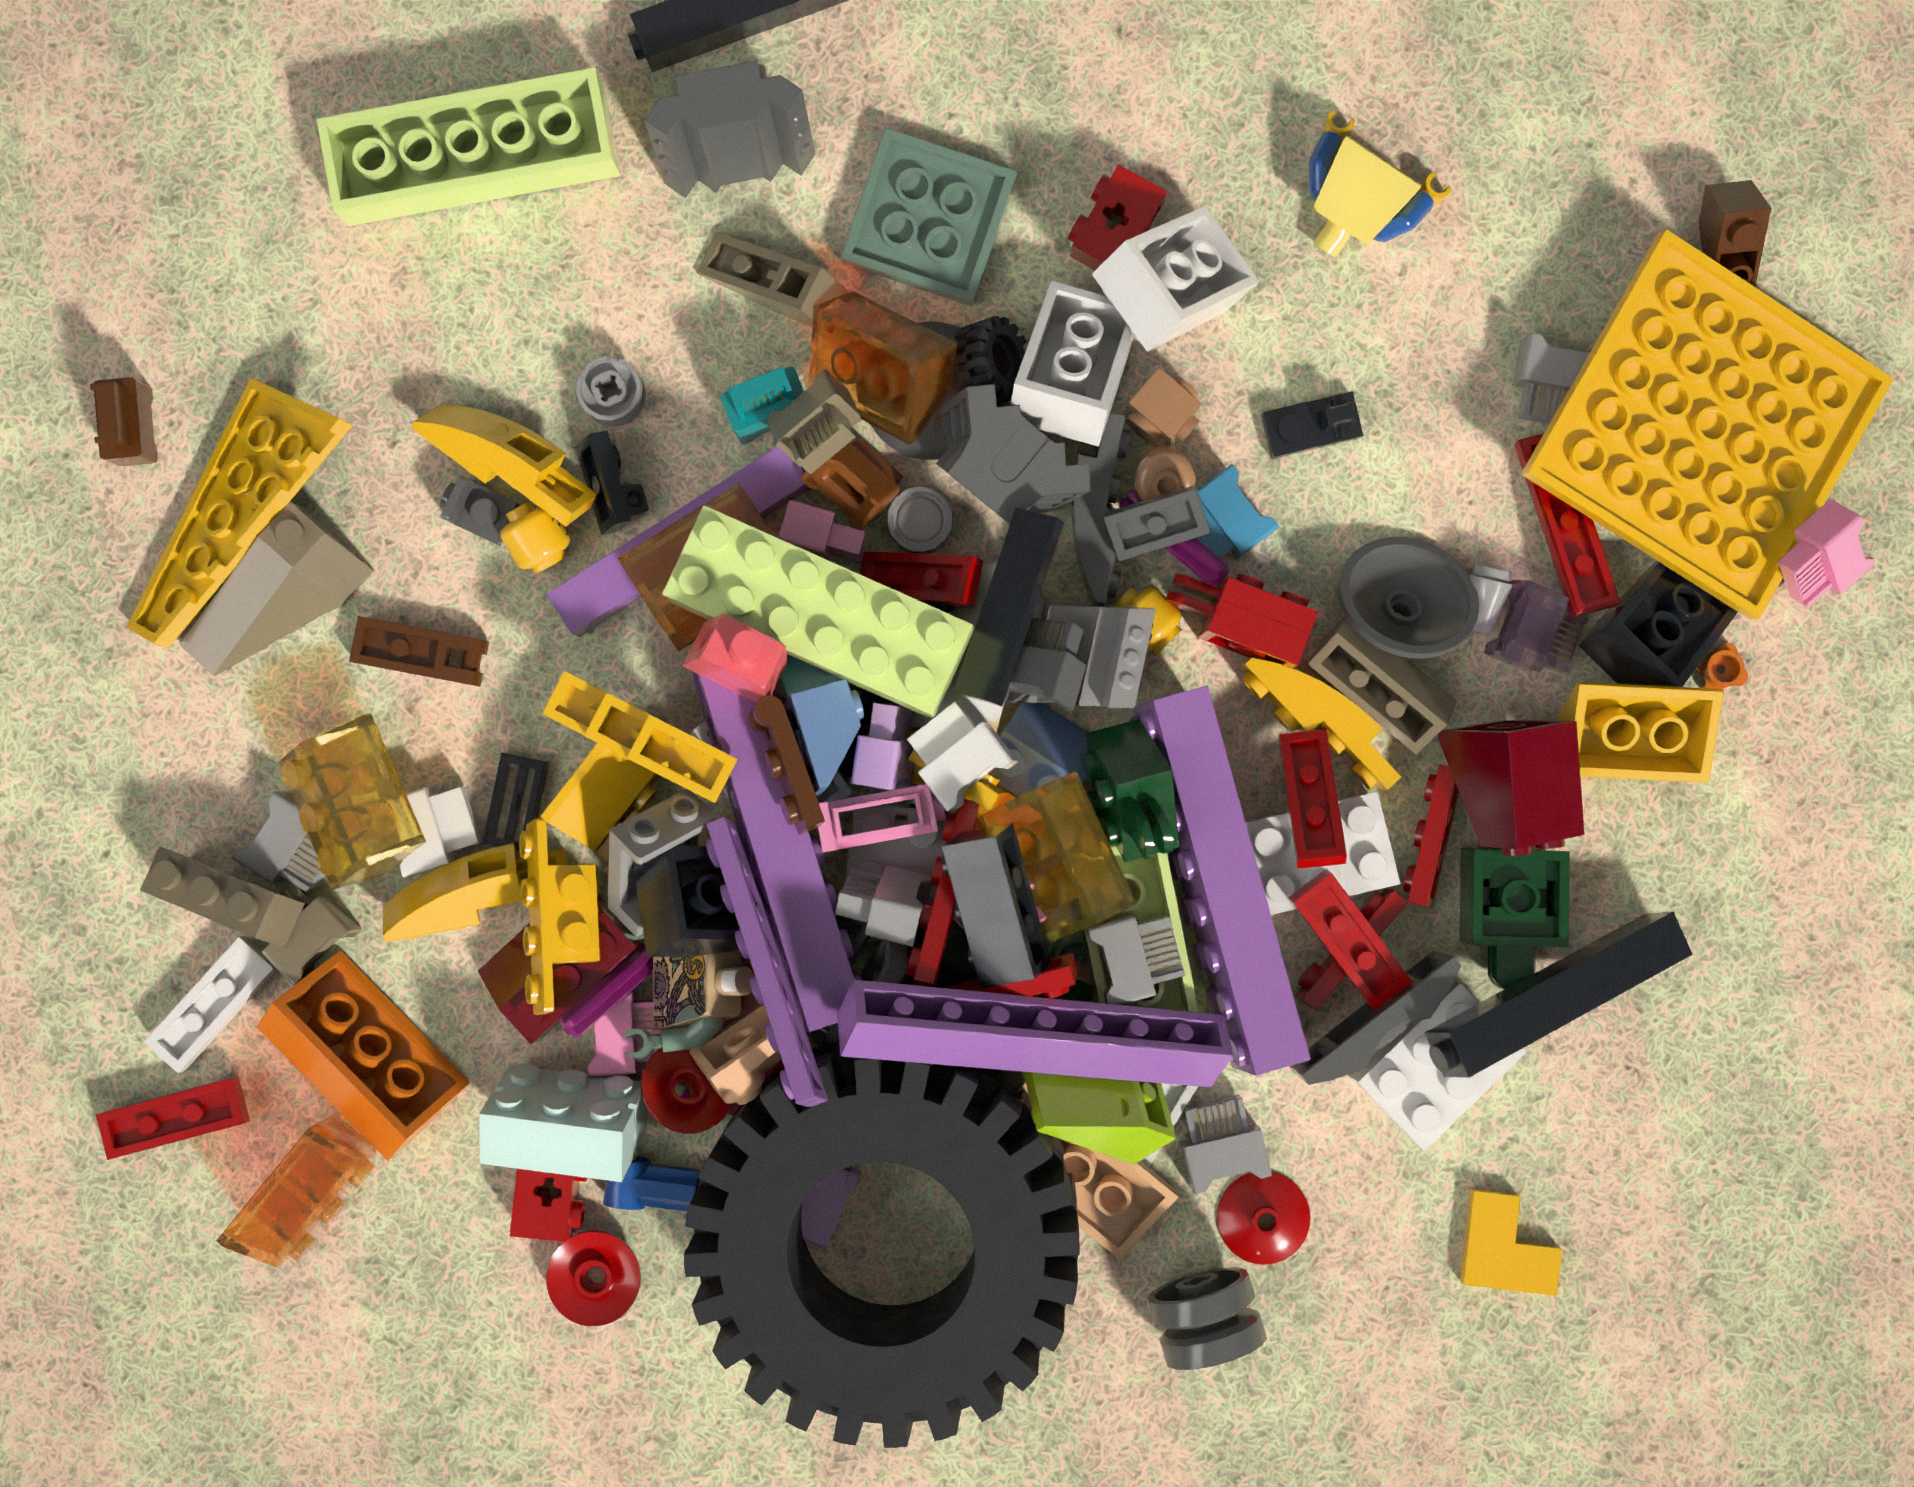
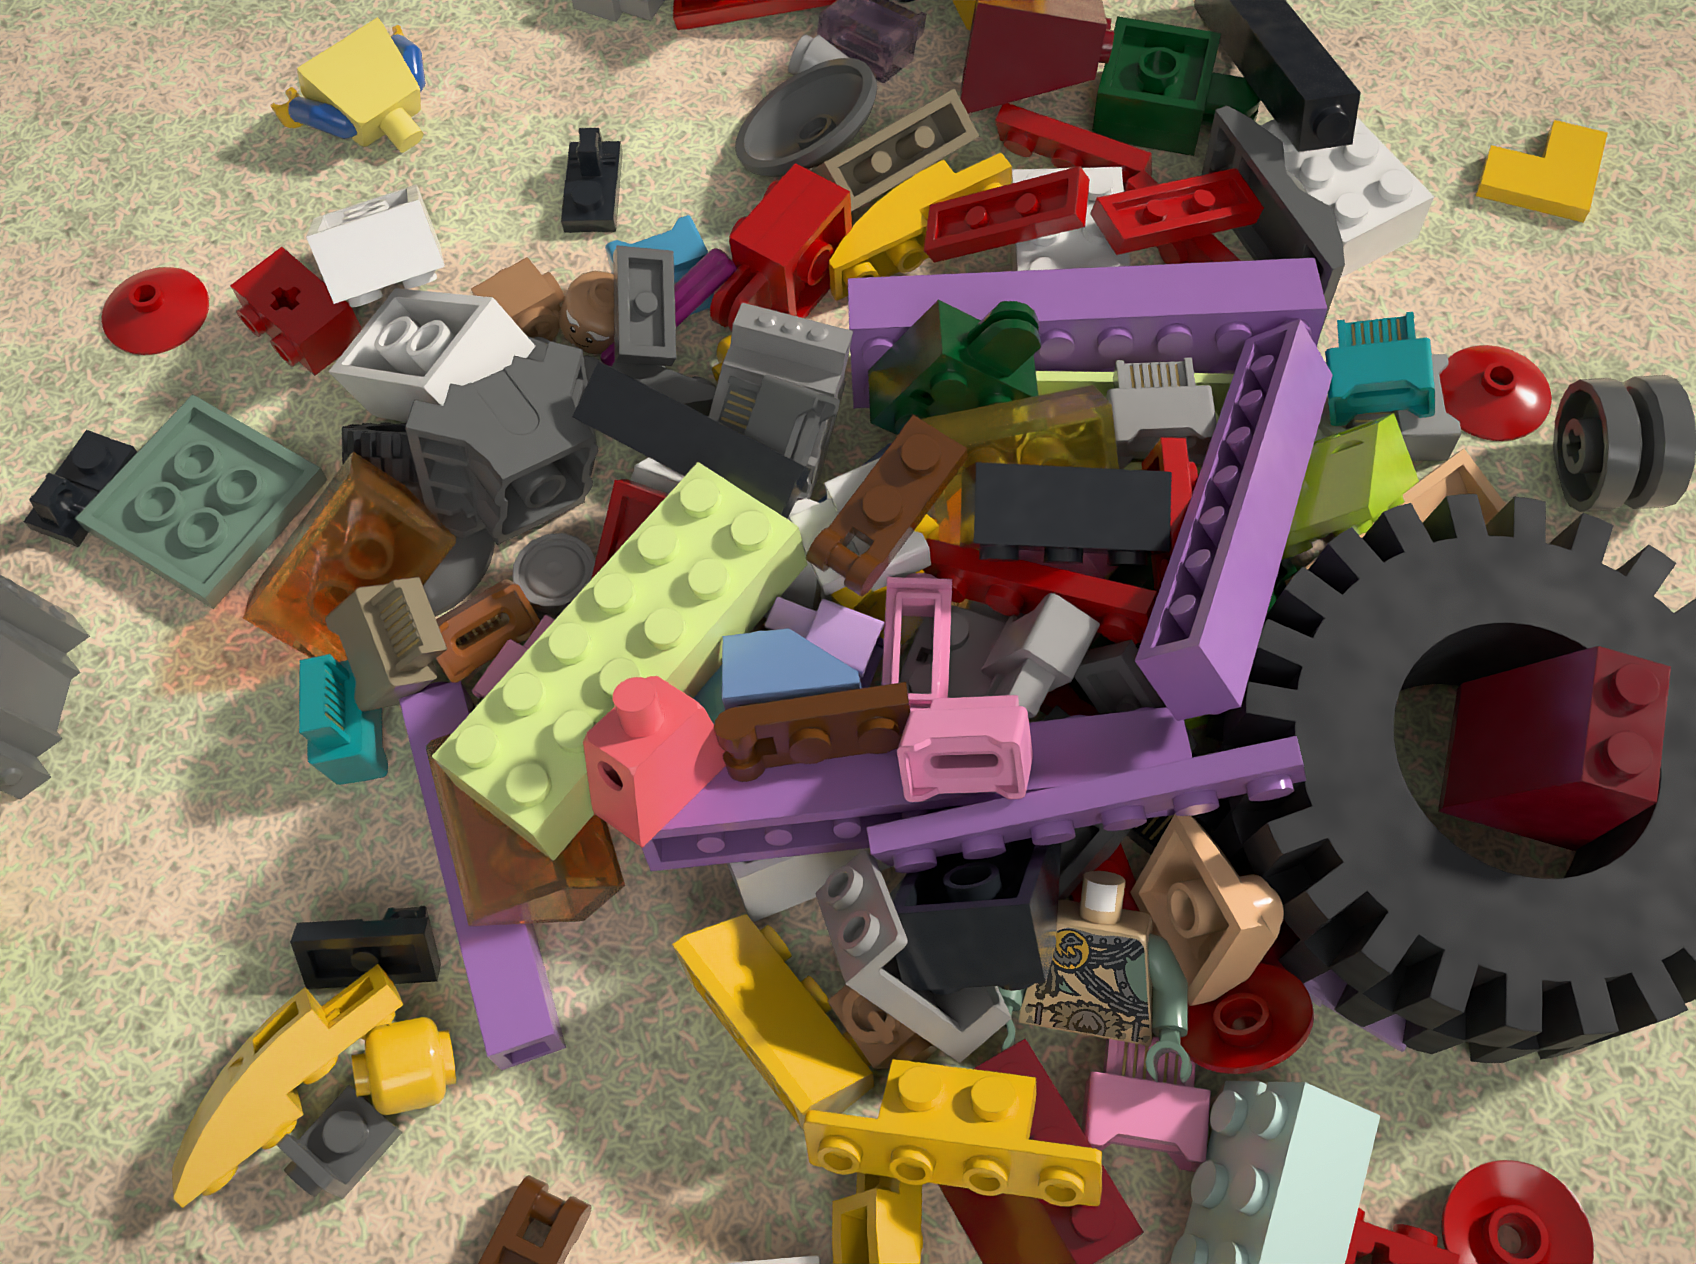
camera: 75 degrees left, 25 degrees down
(534, 803) = (721, 1168): black tile -> none
(607, 993) = (1085, 1094): magenta axle -> none
(611, 391) = (249, 917): light grey wheel -> none
(640, 736) = (722, 930): yellow slope -> none
(652, 1187) = (1390, 1086): blue piece -> none
(769, 277) = (194, 683): dark tan slope -> none
(790, 873) = (966, 748): none -> bright pink piece
(883, 1271) = (1558, 746): none -> dark red slope
(922, 113) = (75, 484): none -> black hinge
(968, 776) = (888, 505): none -> reddish brown plate
(1098, 116) = (155, 310): none -> red dish
(1235, 1122) = (1380, 369): none -> teal piece

